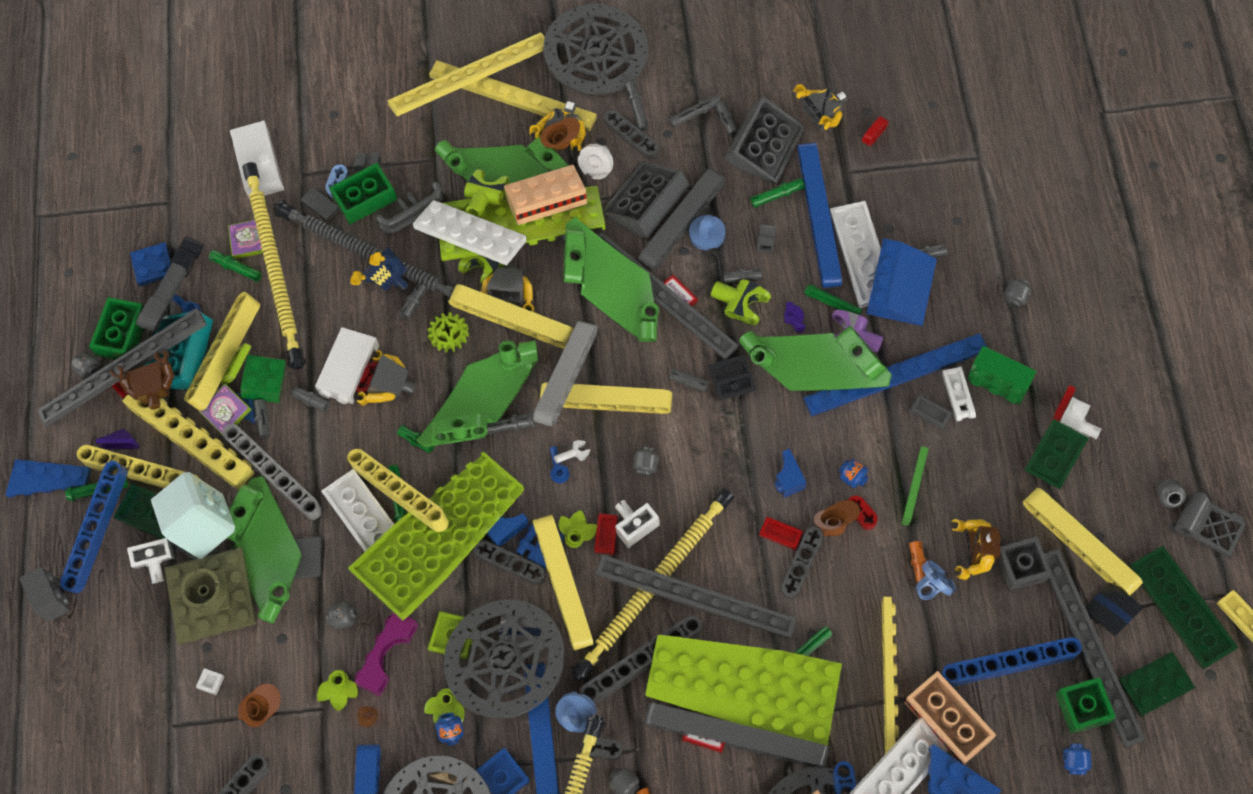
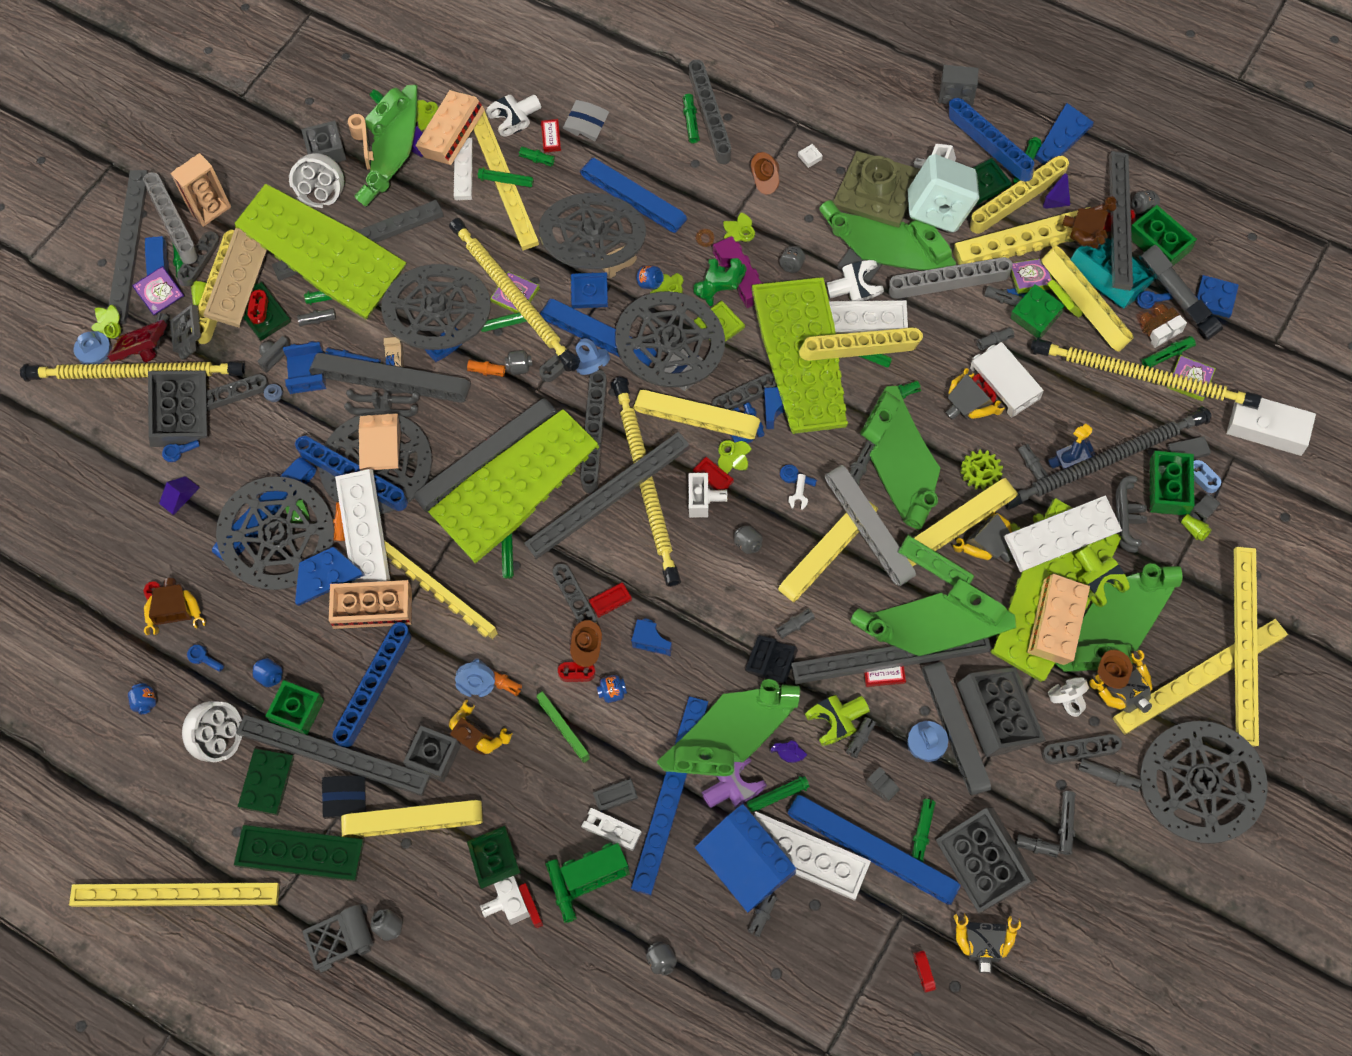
camera: 125 degrees right, 0 degrees up
(212, 282) = (1164, 326): none -> hips
(332, 543) = (854, 283): none -> white connector
(389, 159) = (1196, 527): none -> lime cone
(411, 660) = (719, 280): none -> green animal
(560, 309) = (933, 562): none -> bright green tile
(1037, 388) = (559, 887): none -> green pin
(1167, 769) = (207, 723): none -> white cylinder

